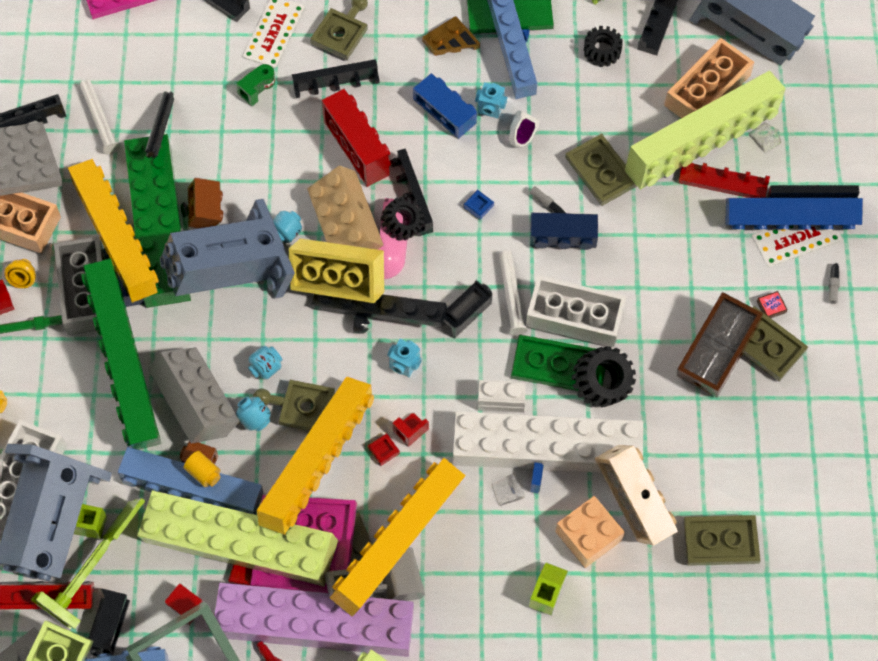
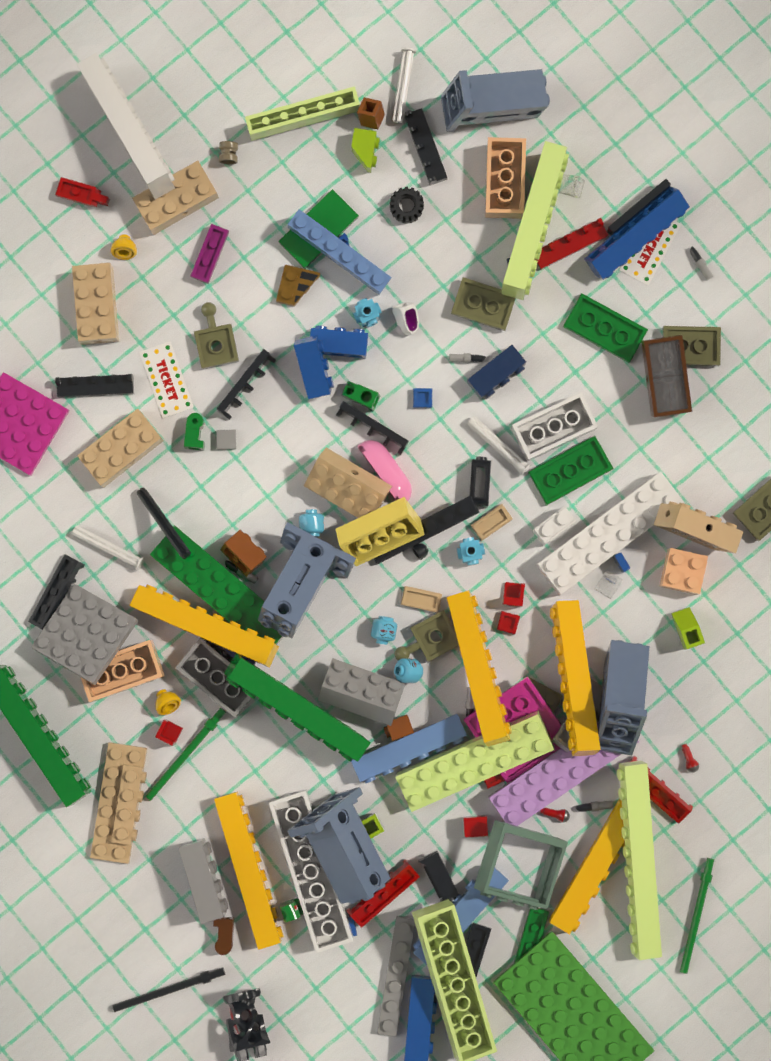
camera: 35 degrees left, 20 degrees up
(57, 607) = (393, 819): lime piece -> none
(183, 48) = (120, 448): none -> tan brick
(202, 469) = (415, 737): yellow brick -> none
(278, 110) = (226, 439): none -> light grey tile
(323, 366) = (421, 599): none -> tan tile
(356, 137) = (302, 420): red brick -> none
(394, 226) = (380, 463): black tyre -> none
(404, 102) = (313, 367): none -> blue brick
(424, 587) = (623, 697): none -> sand blue brick
(427, 161) = (361, 395): none -> green leg
(447, 352) = (491, 522): none -> tan tile
(619, 370) = (623, 456): black tyre -> none
(695, 269) = (605, 328): none -> green tile
(772, 304) = (673, 313): tile -> none

